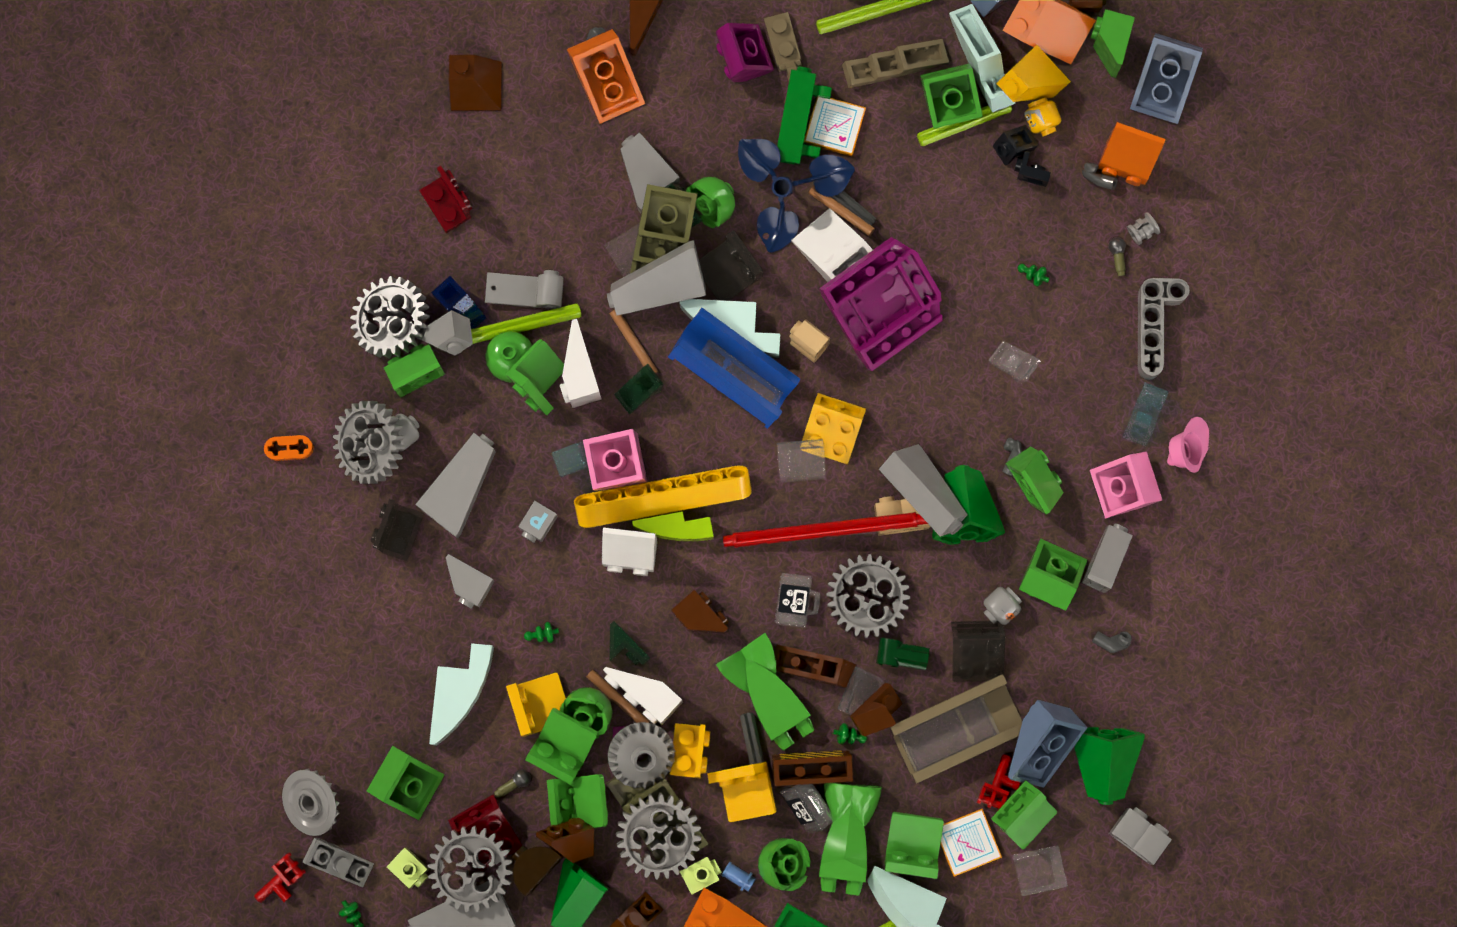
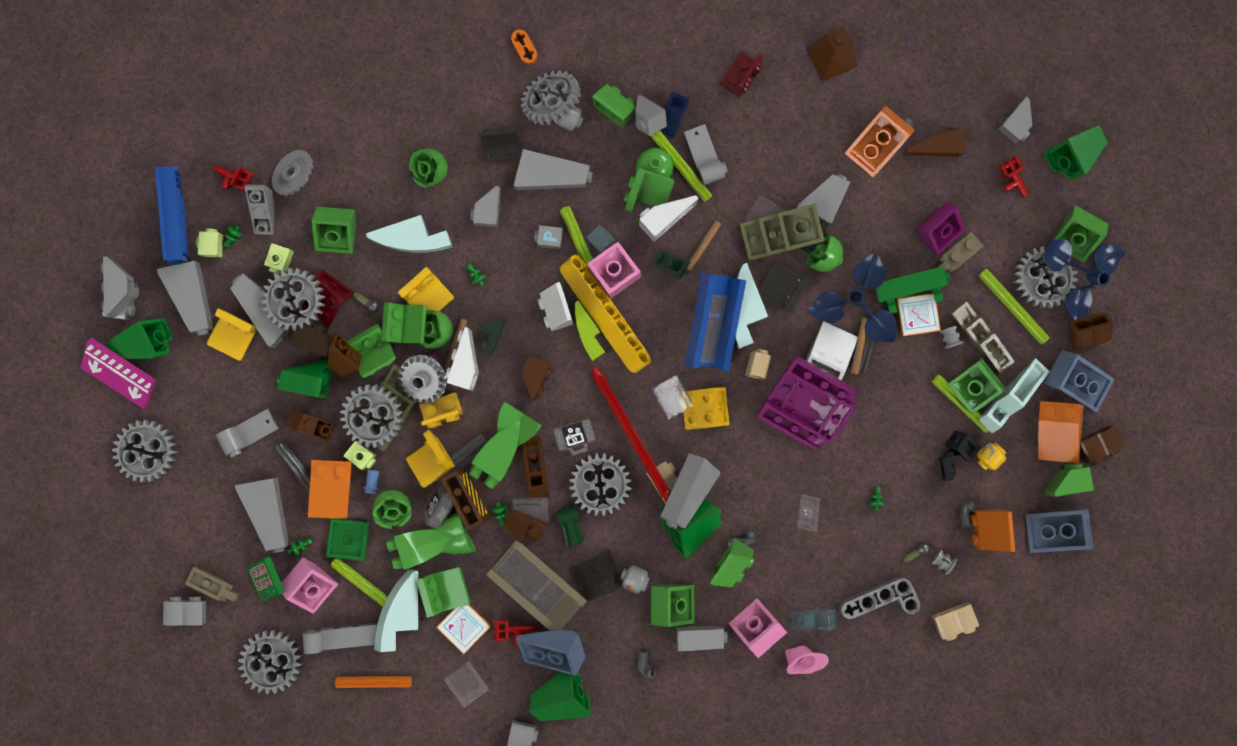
camera: 65 degrees right, 5 degrees up
(383, 630) = (428, 167): none -> bright green cylinder
(388, 338) = (653, 64): light grey gear -> none
(550, 488) = (576, 234): none -> lime axle
(661, 282) = (751, 244): light grey slope -> none
(879, 99) = (951, 337): none -> light grey bush
(1024, 814) = (497, 657): bright green bracket -> none
(1033, 78) = (1016, 437): yellow slope -> none
(1220, 247) = (955, 621): none -> tan brick

